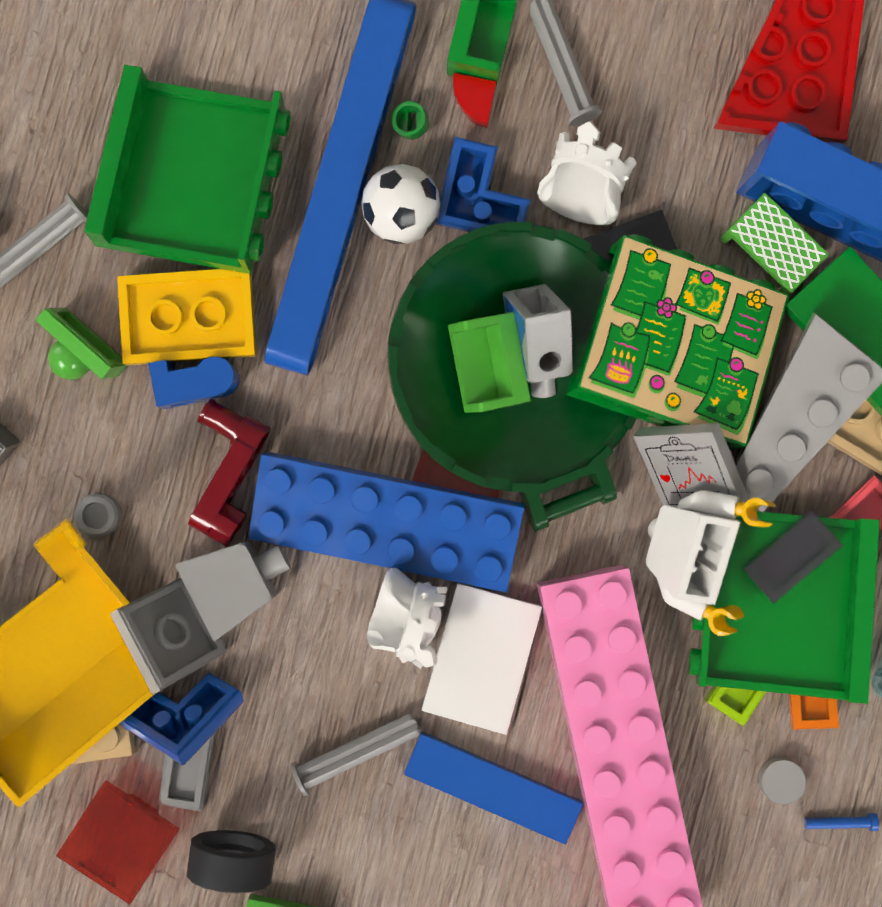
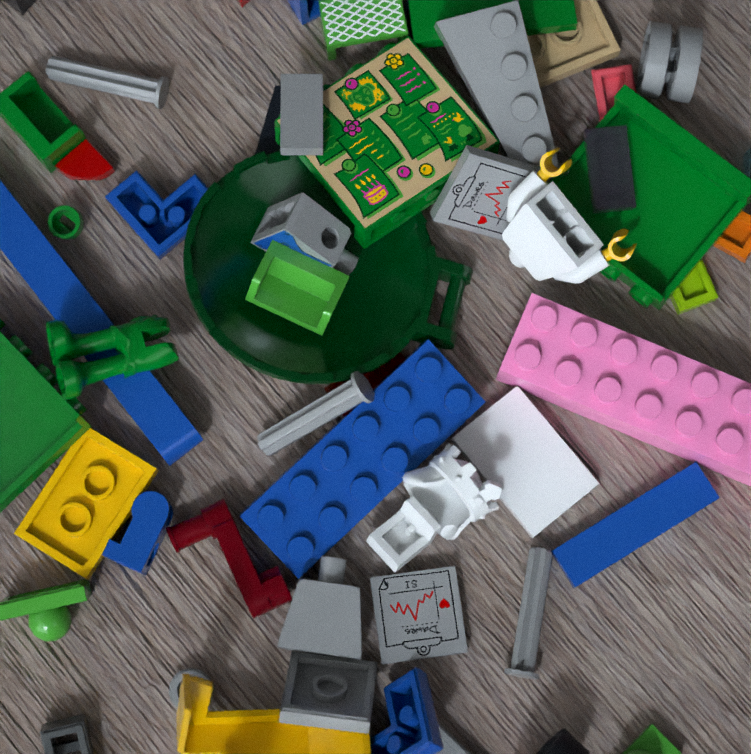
camera: 55 degrees left, 10 degrees down
(289, 658) = (418, 615): none -> light grey tile
(339, 246) = (125, 339): none -> green piece
(346, 601) = (404, 534): none -> white bracket
(394, 457) = (316, 414): none -> light grey axle
(401, 204) = (125, 271): white piece -> none
(586, 178) = (211, 121): white hair -> none
(645, 255) = (301, 114): none -> light grey tile

